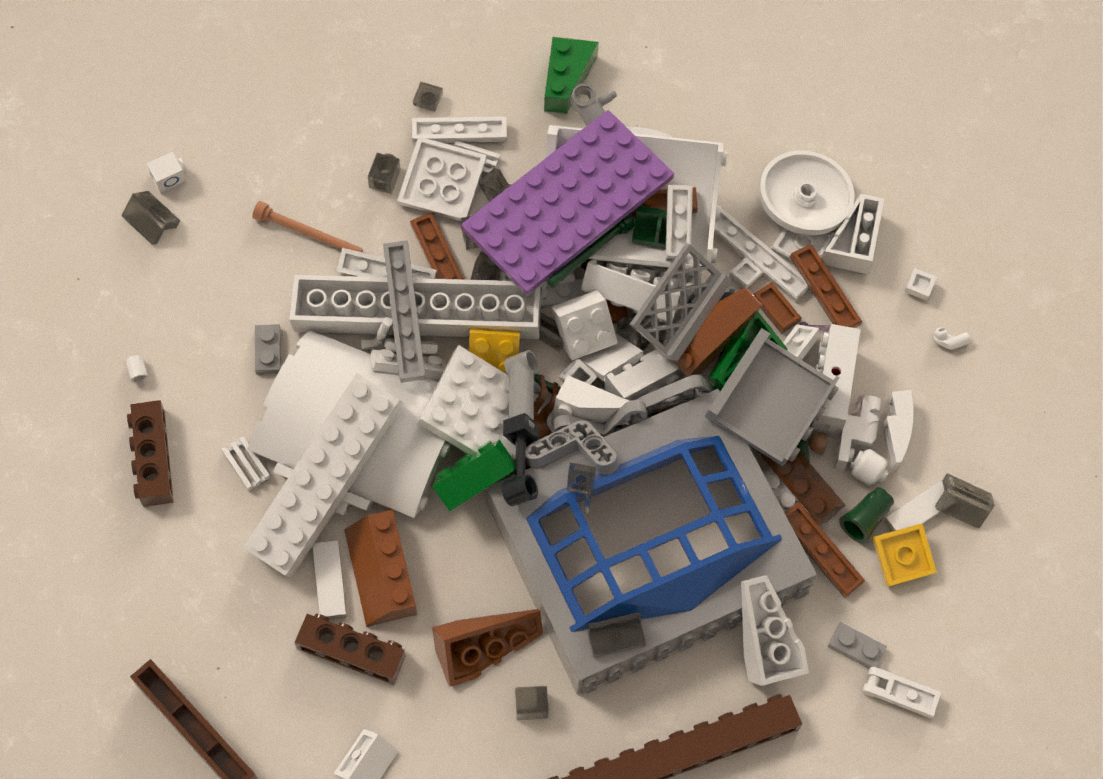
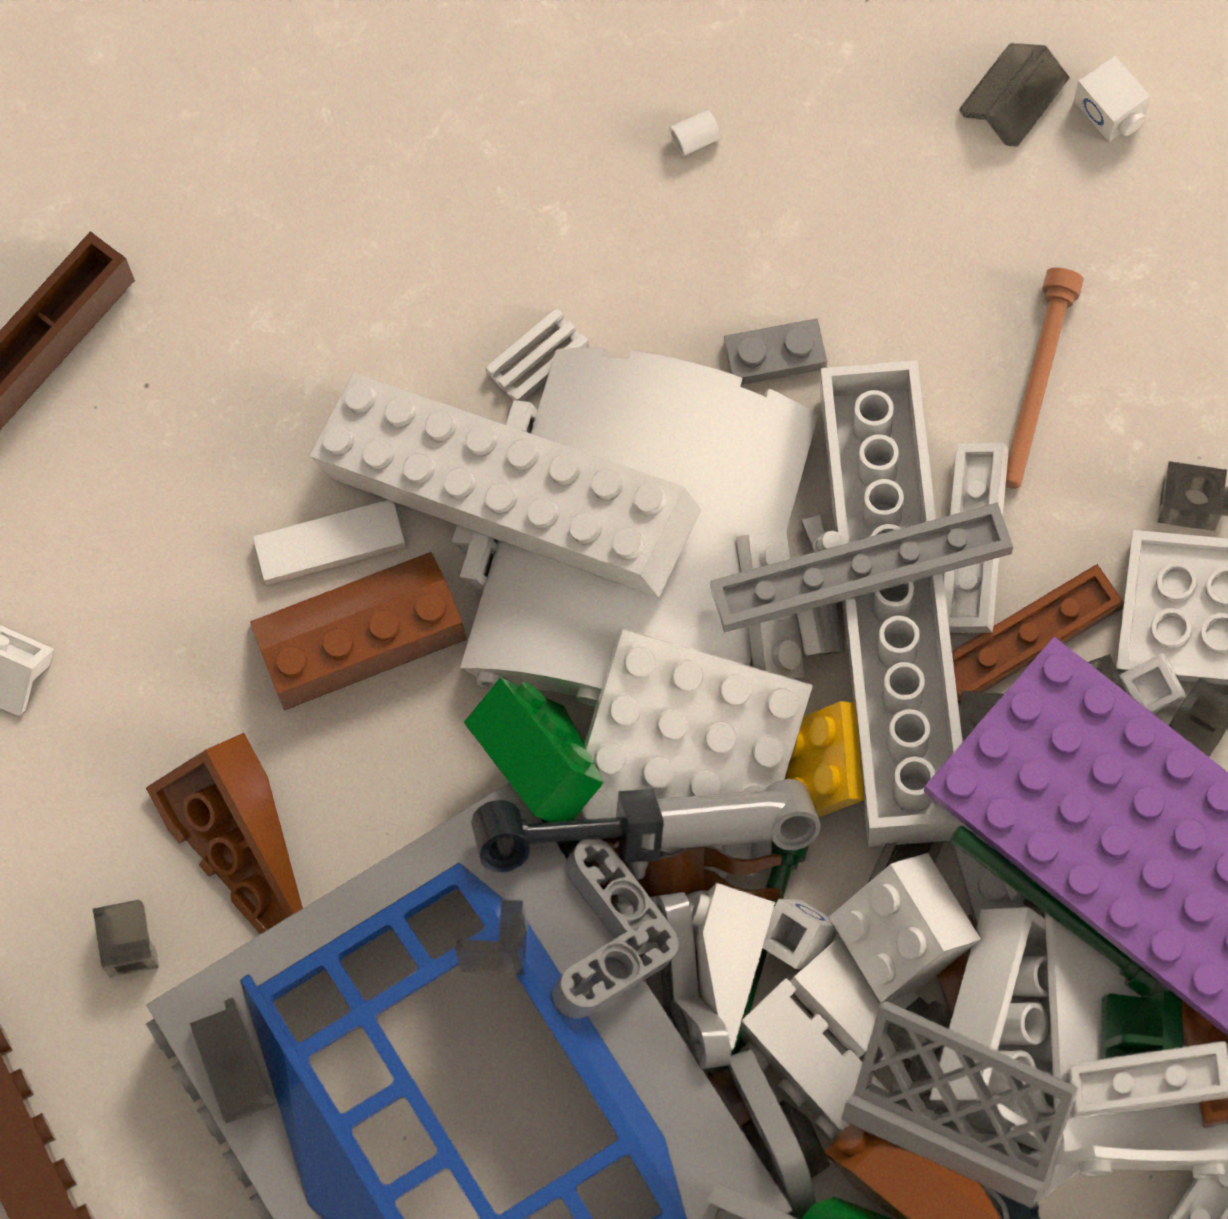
camera: 90 degrees right, 5 degrees up
(160, 489) = (515, 210): reddish brown brick -> none
(316, 626) = (203, 527): reddish brown brick -> none
(475, 201) = (1153, 684): none -> white tile

